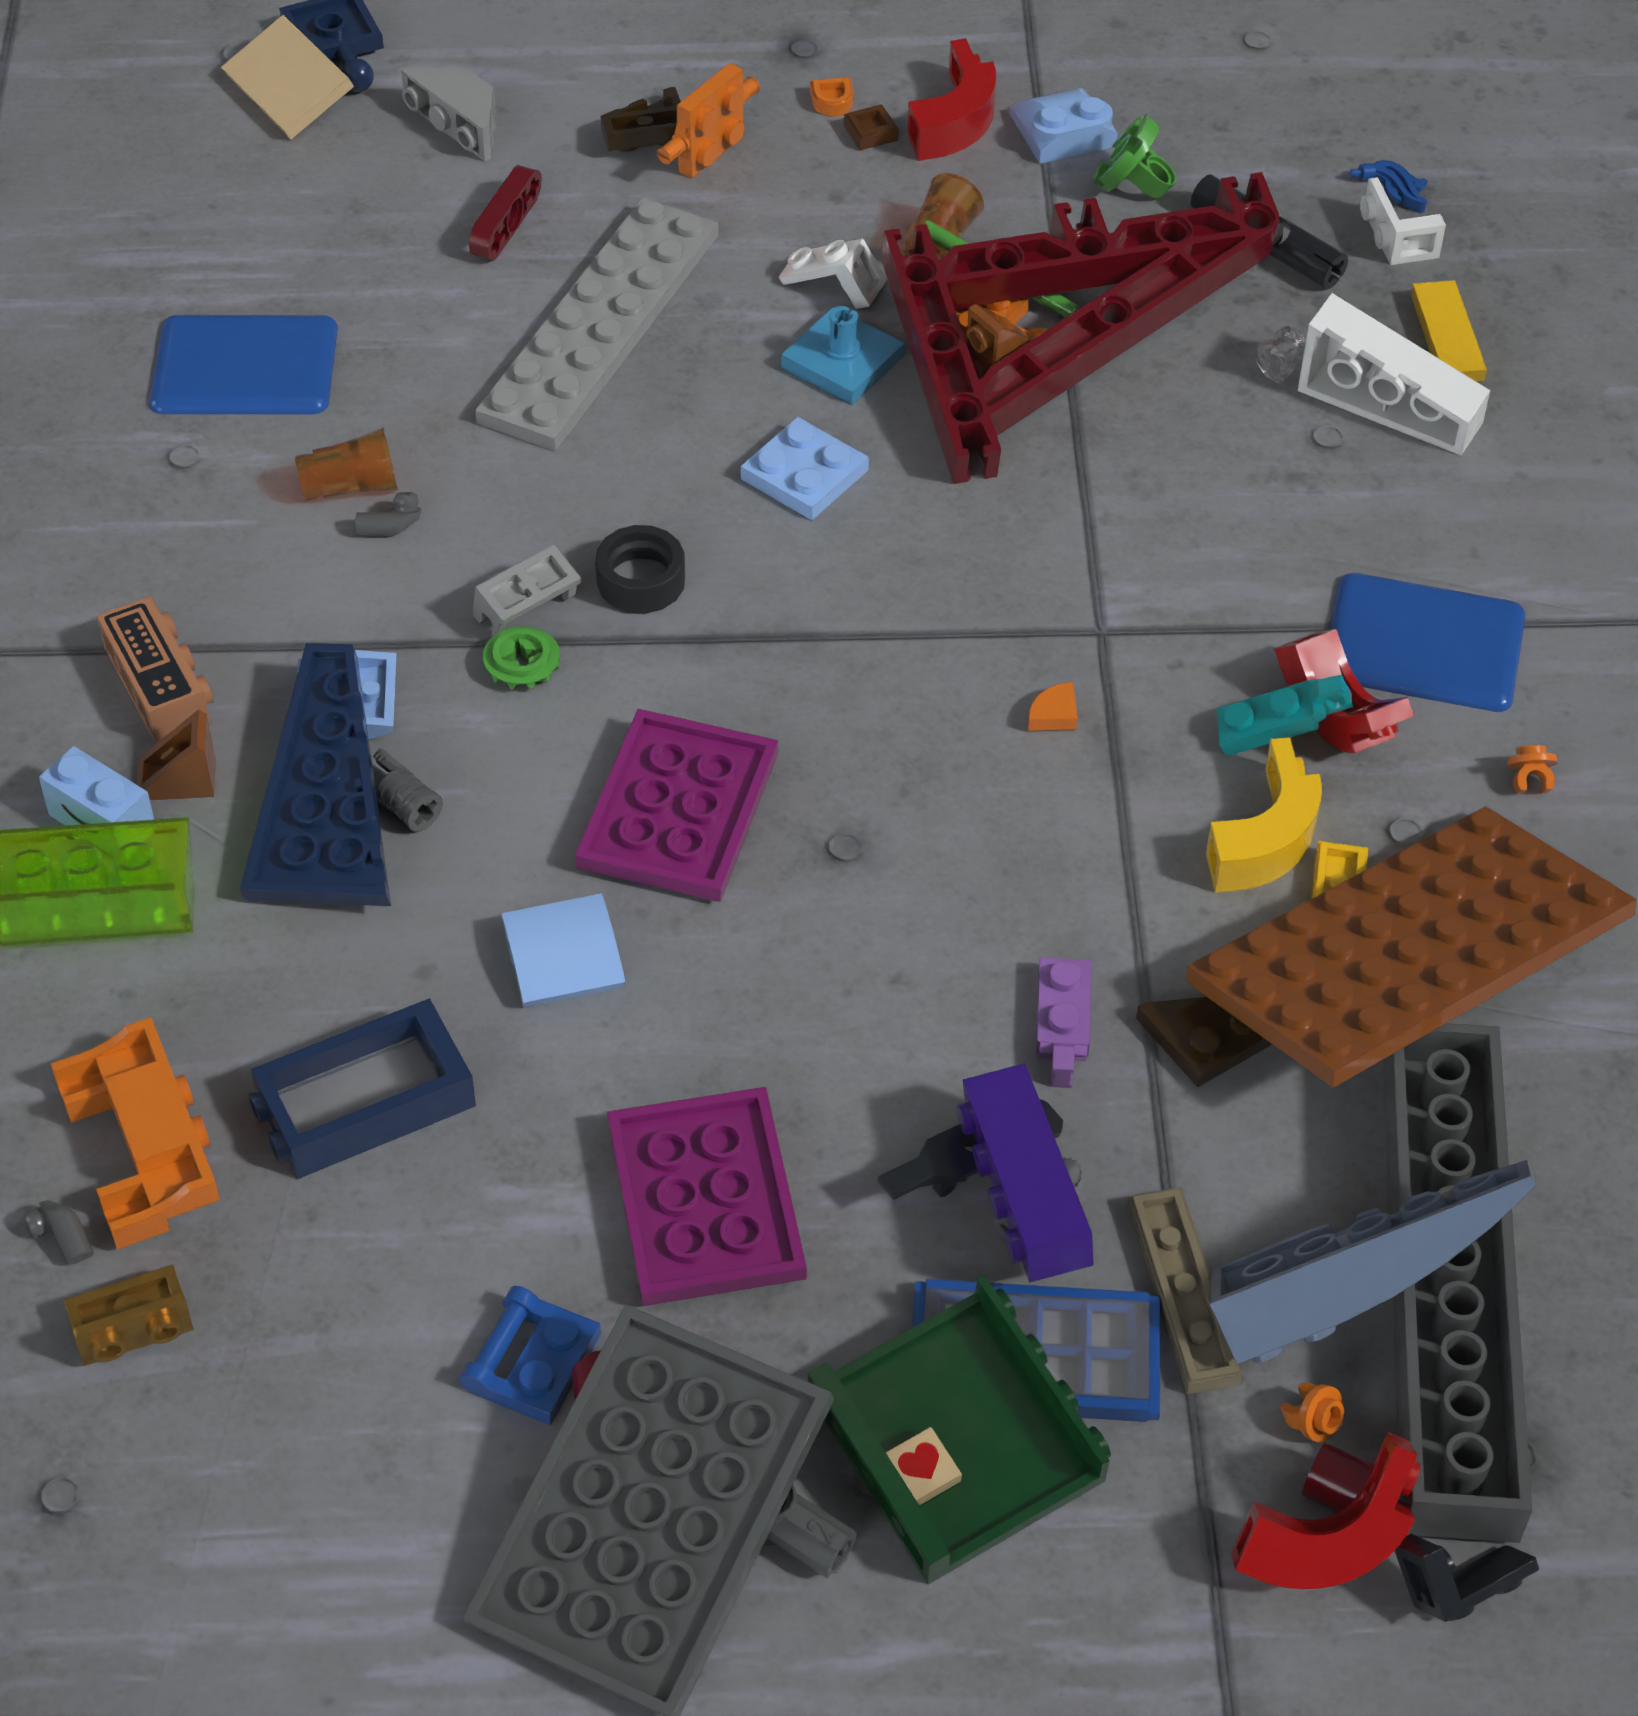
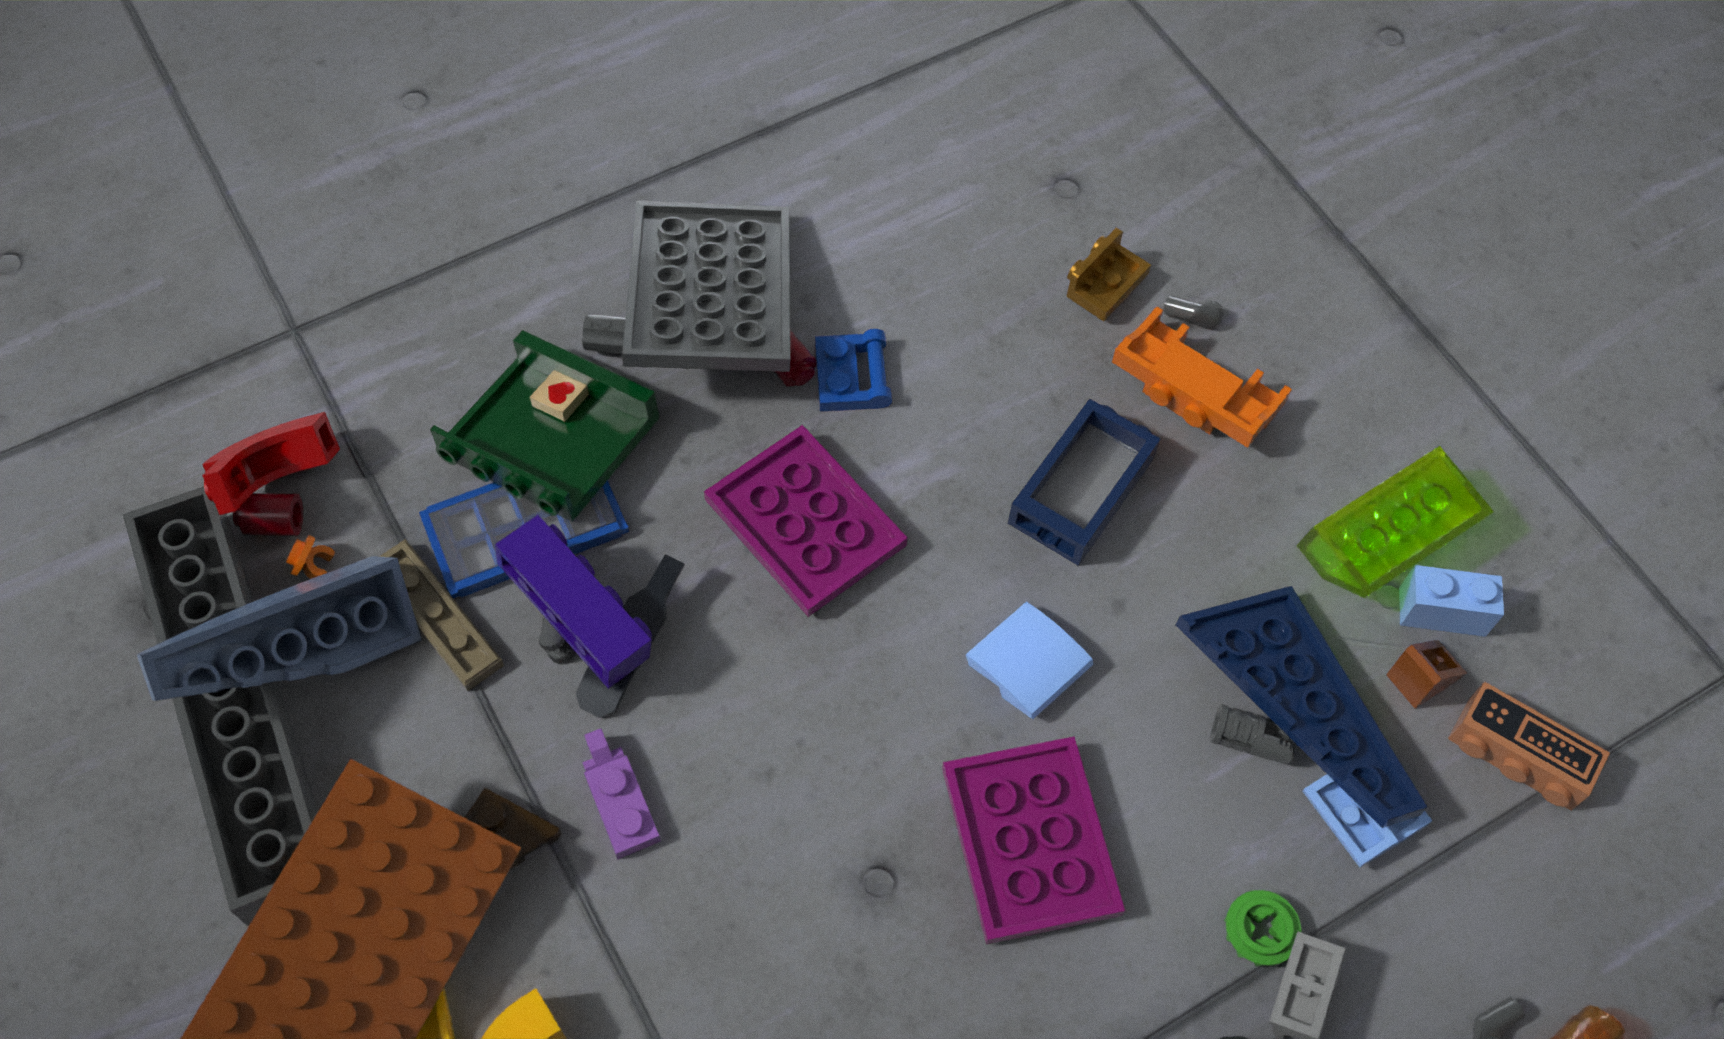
camera: 150 degrees right, 10 degrees up
(1453, 1594) = (175, 475): black bracket -> none

